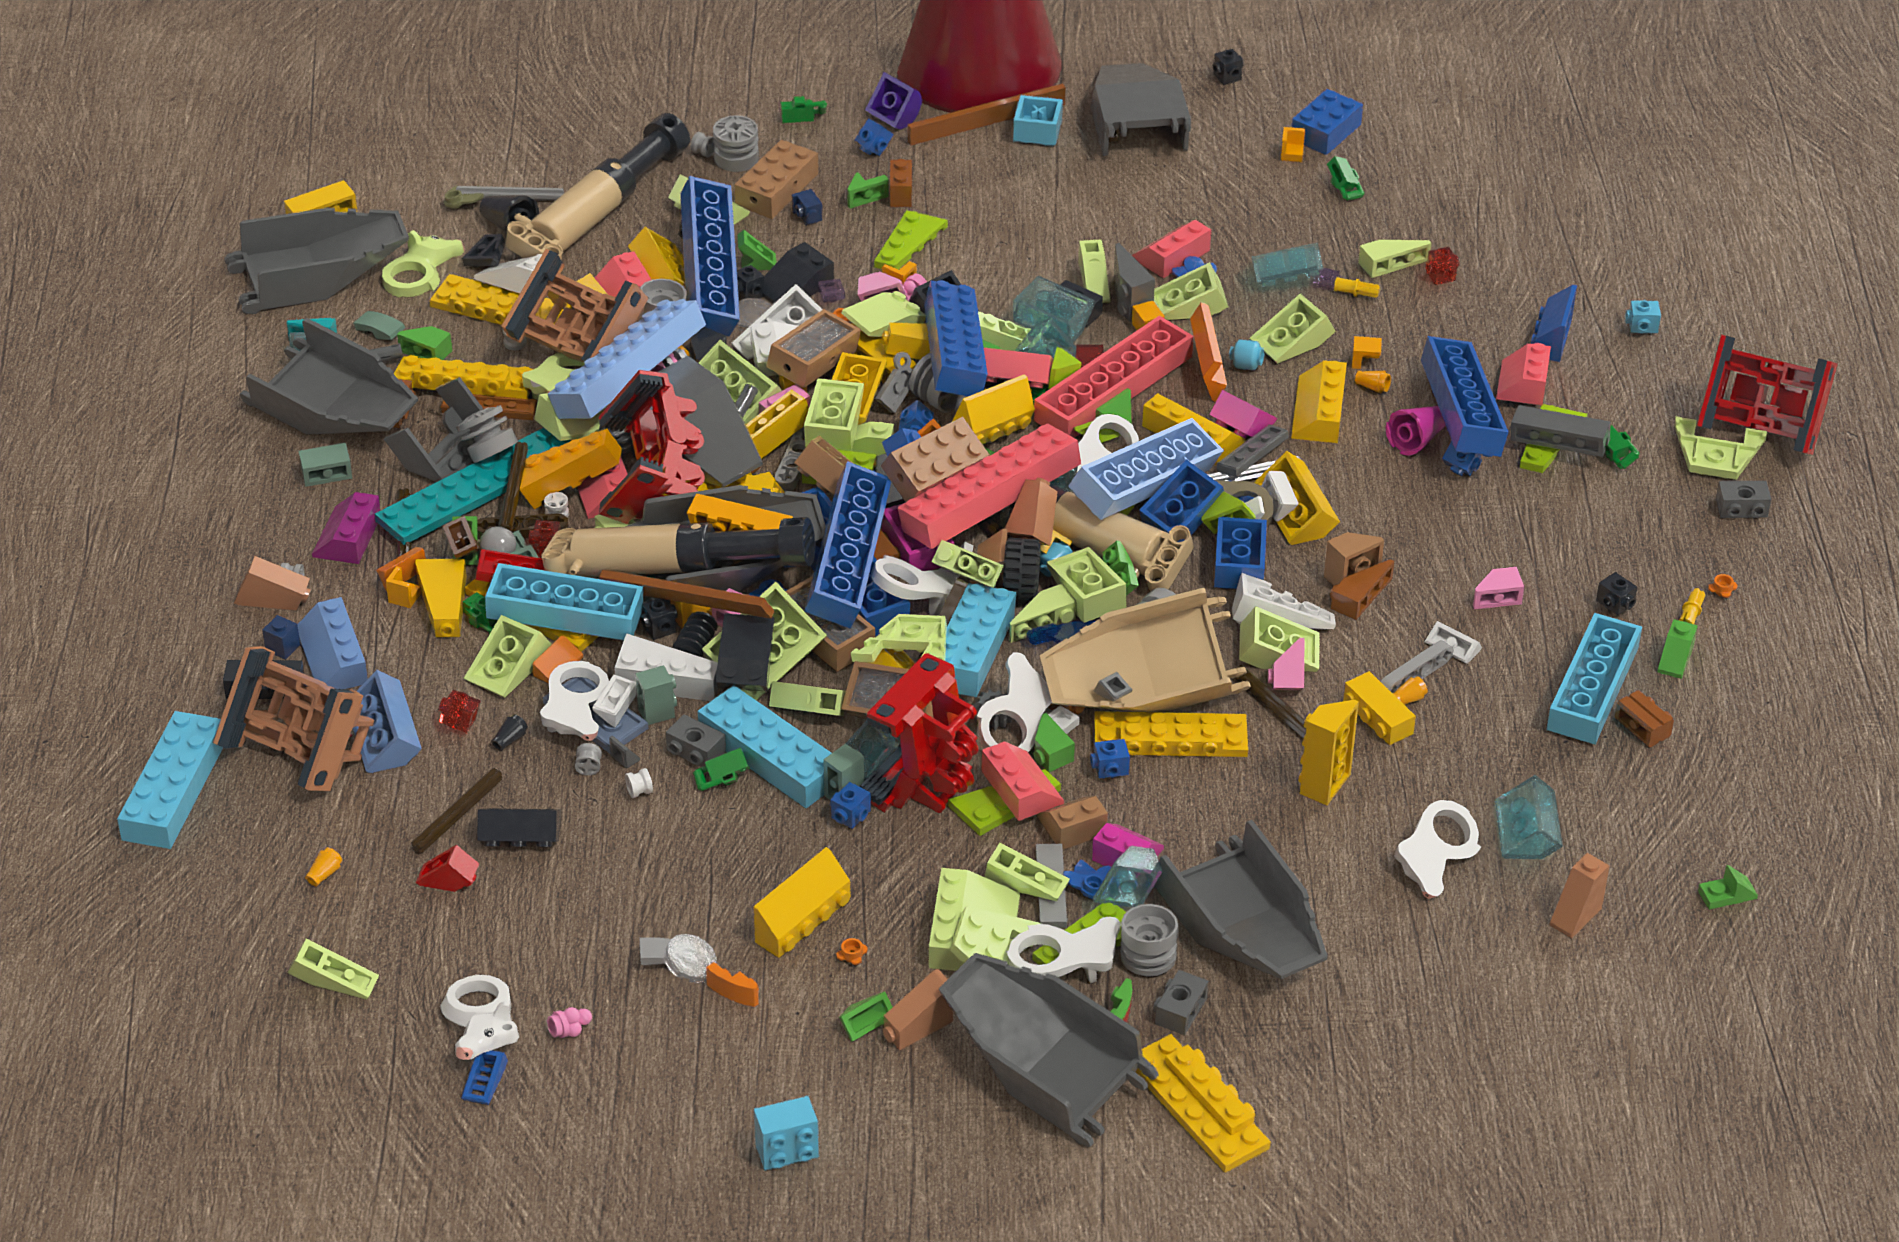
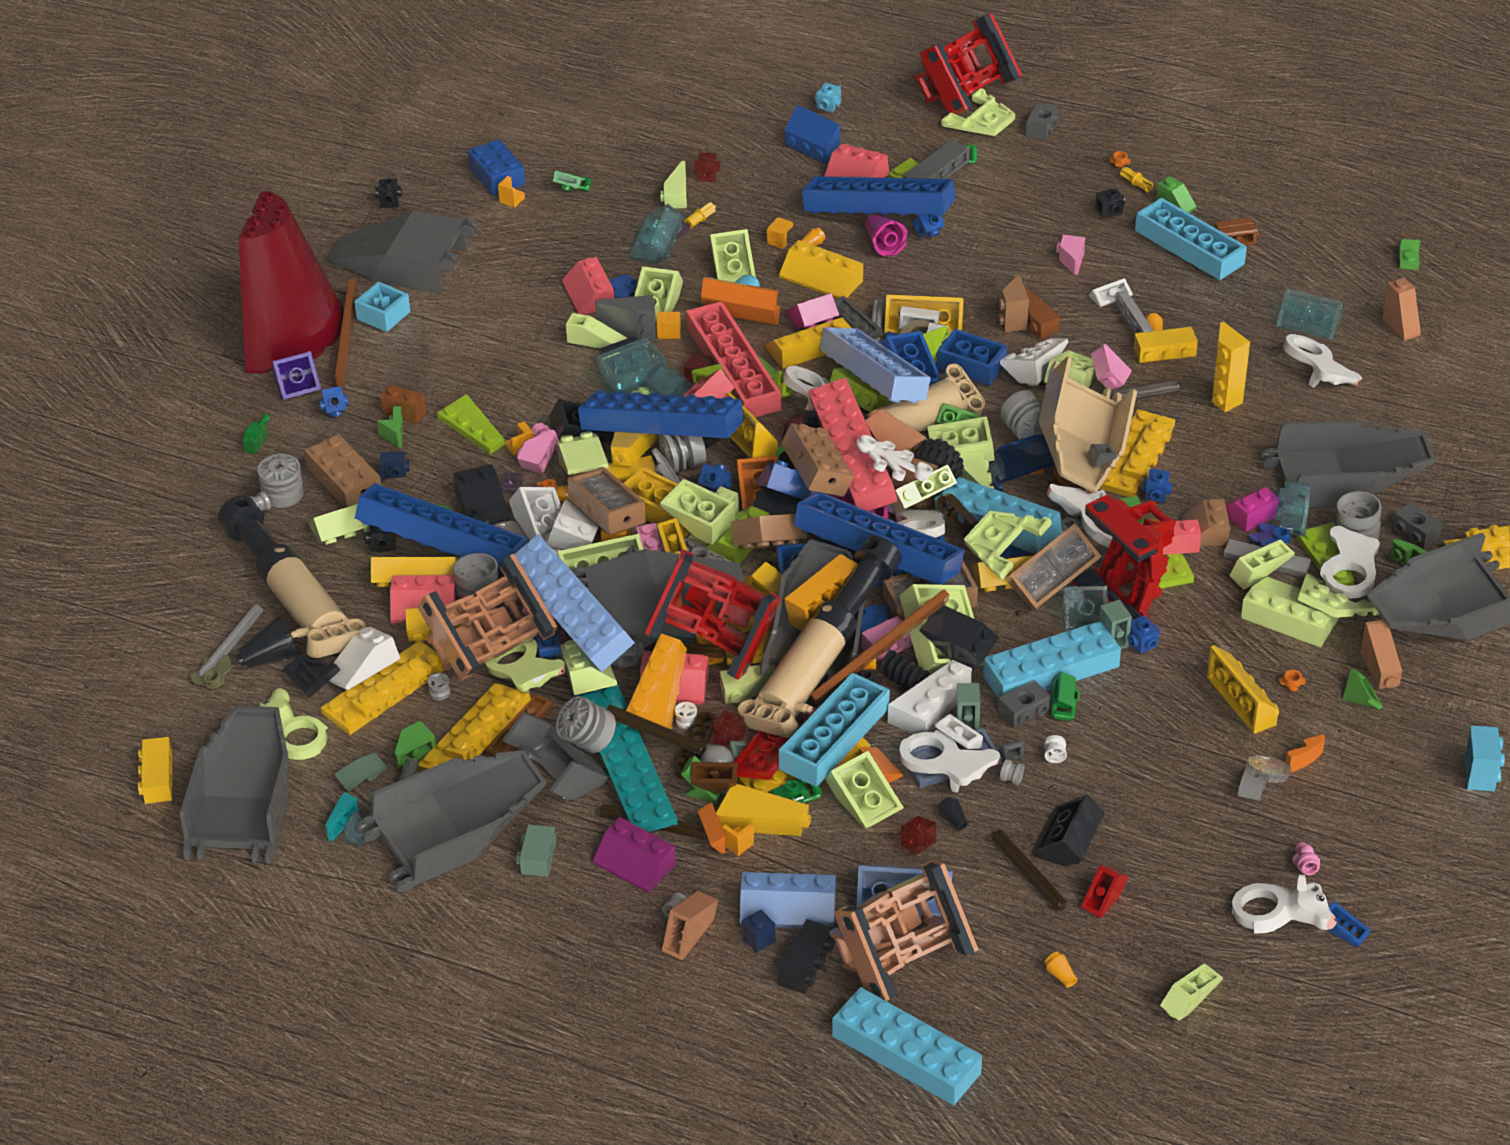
camera: 65 degrees left, 0 degrees up
(807, 698) = (1014, 622): yellowish green slope -> none
(967, 510) = (894, 458): none -> white plant

